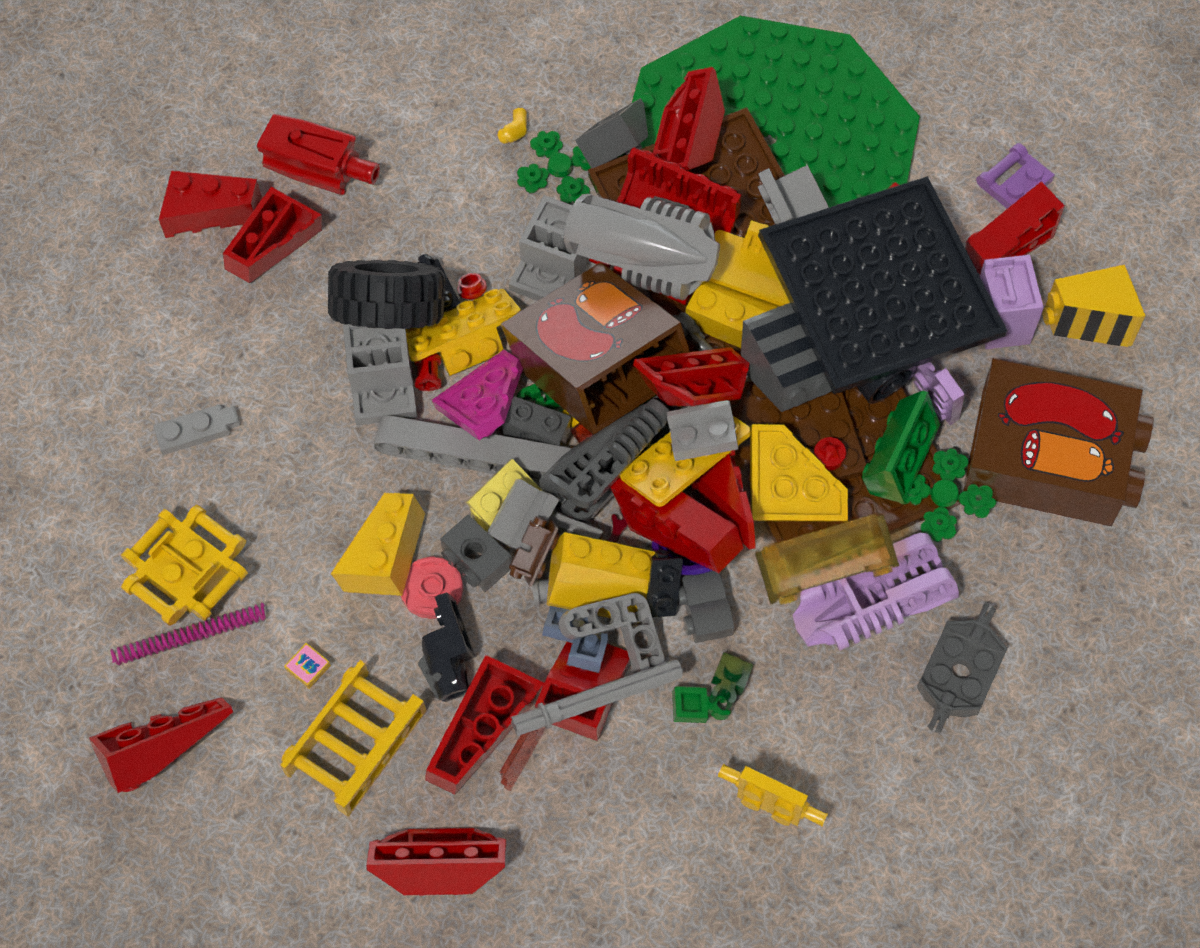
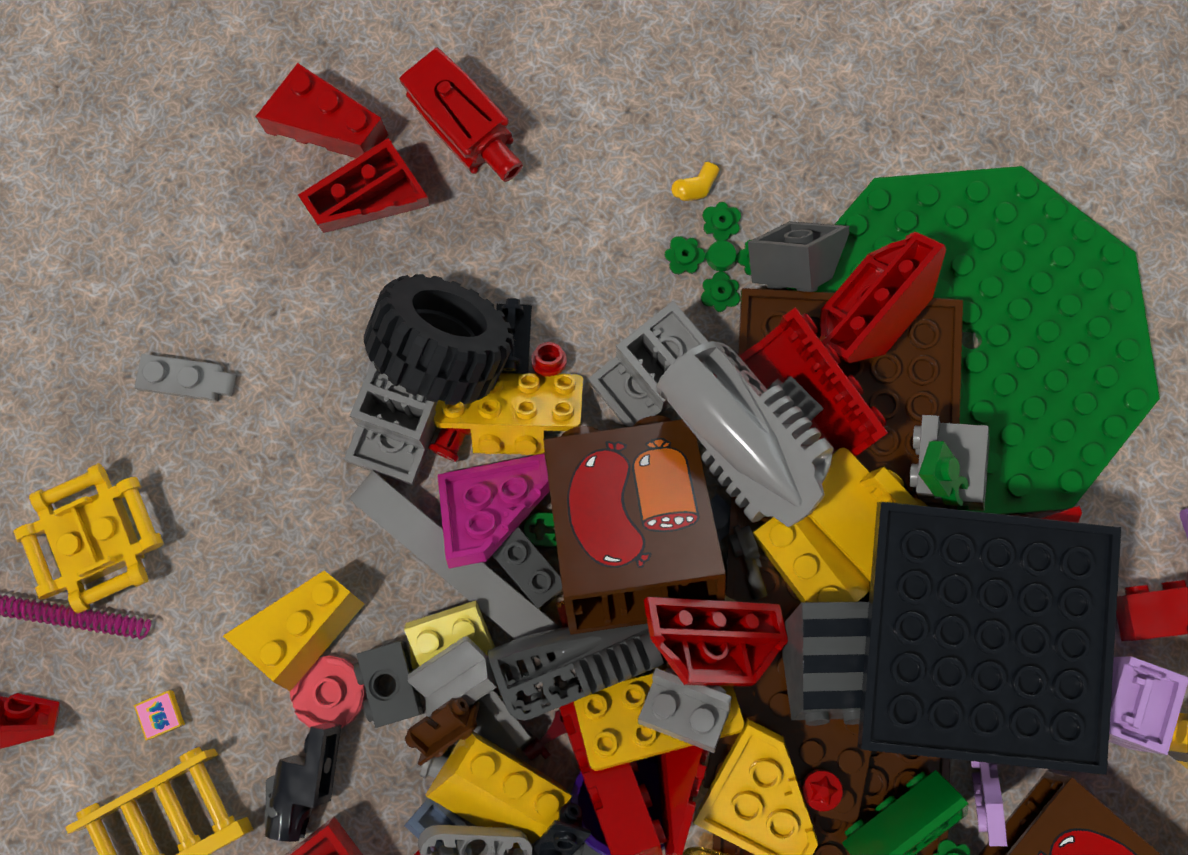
camera: 30 degrees right, 15 degrees up
(790, 198) = (941, 473): none -> green plate

